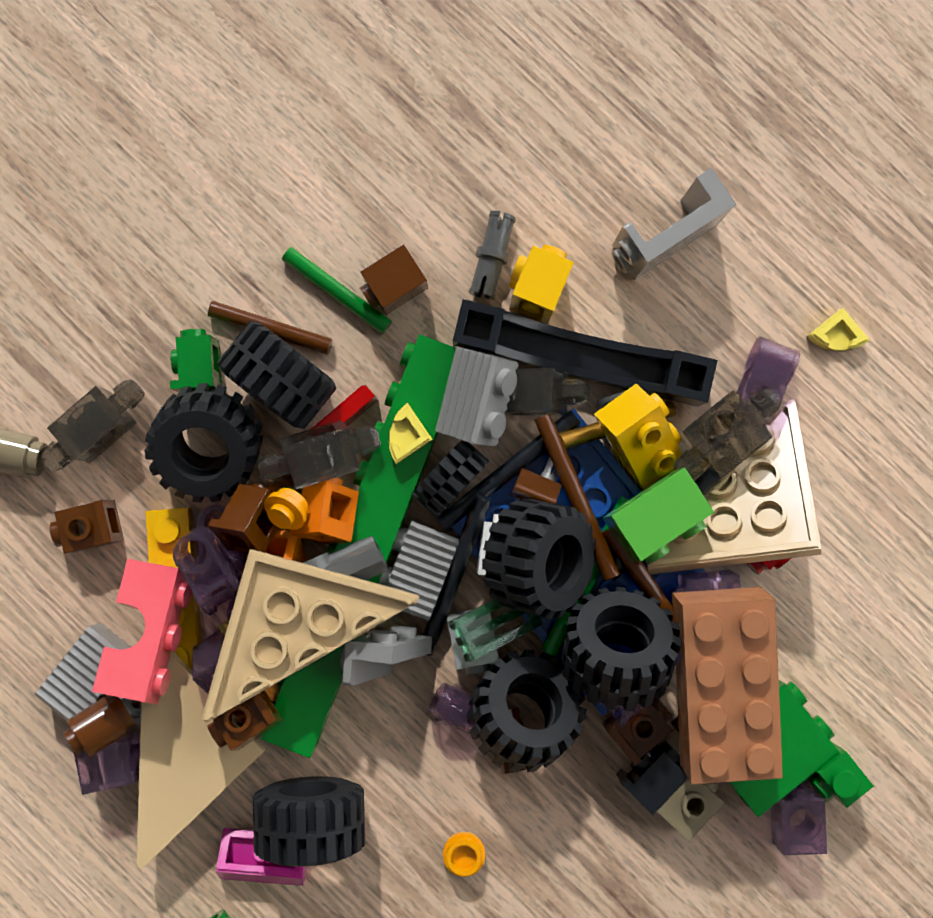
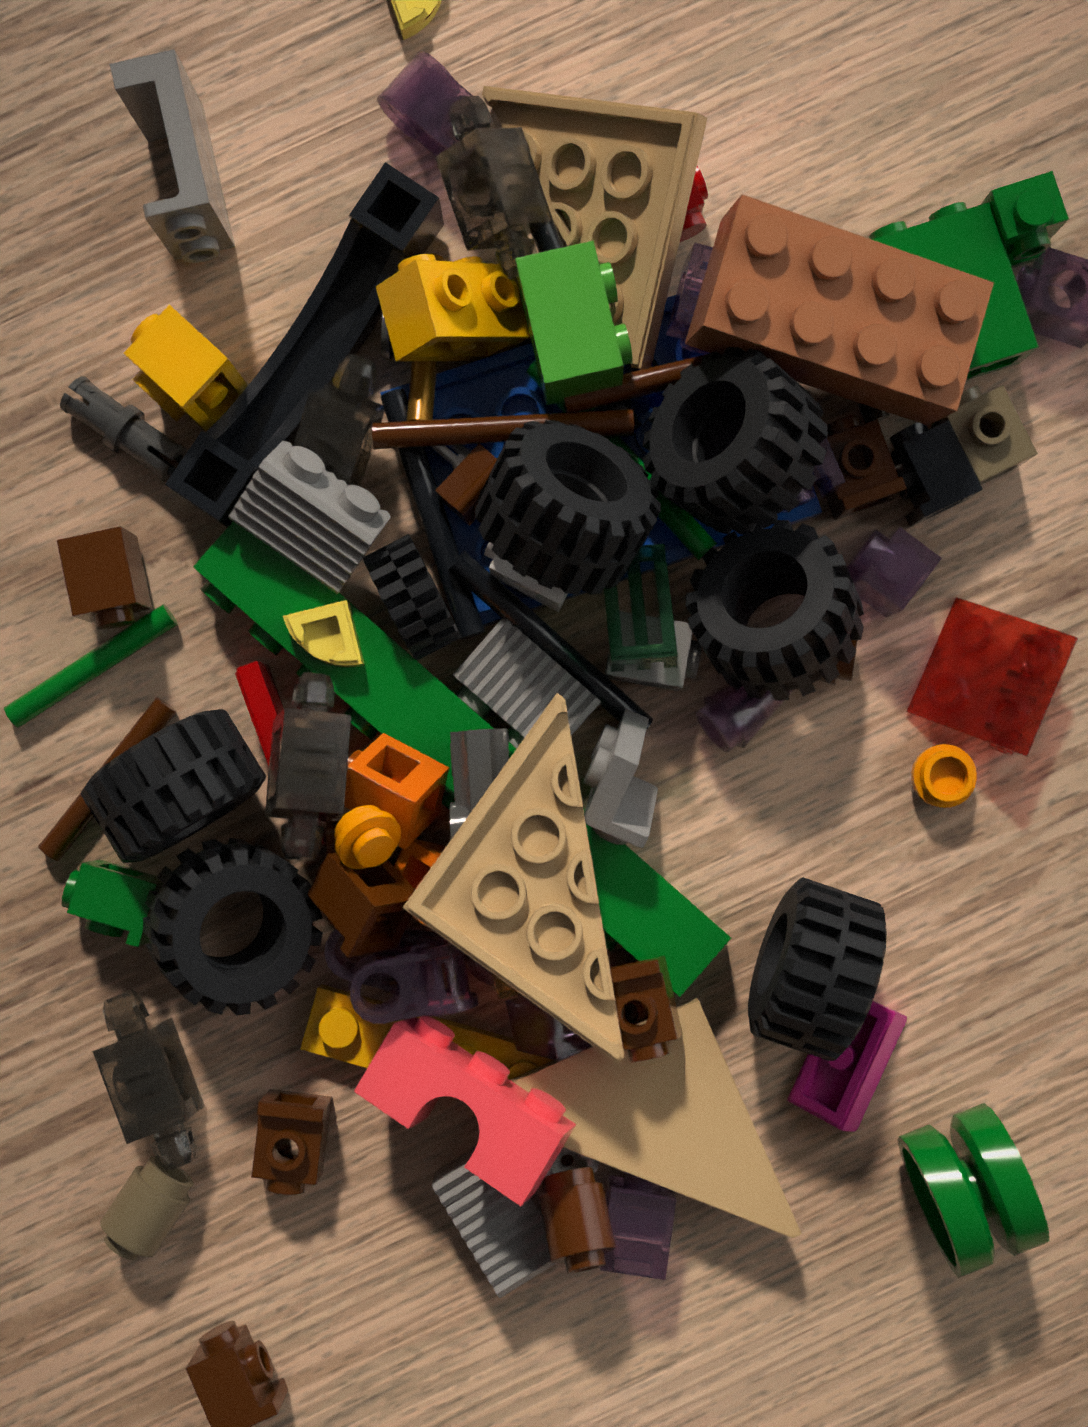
camera: 65 degrees left, 0 degrees up
(537, 862) = (992, 676): none -> clear red hinge
(581, 773) = (891, 570): none -> brick

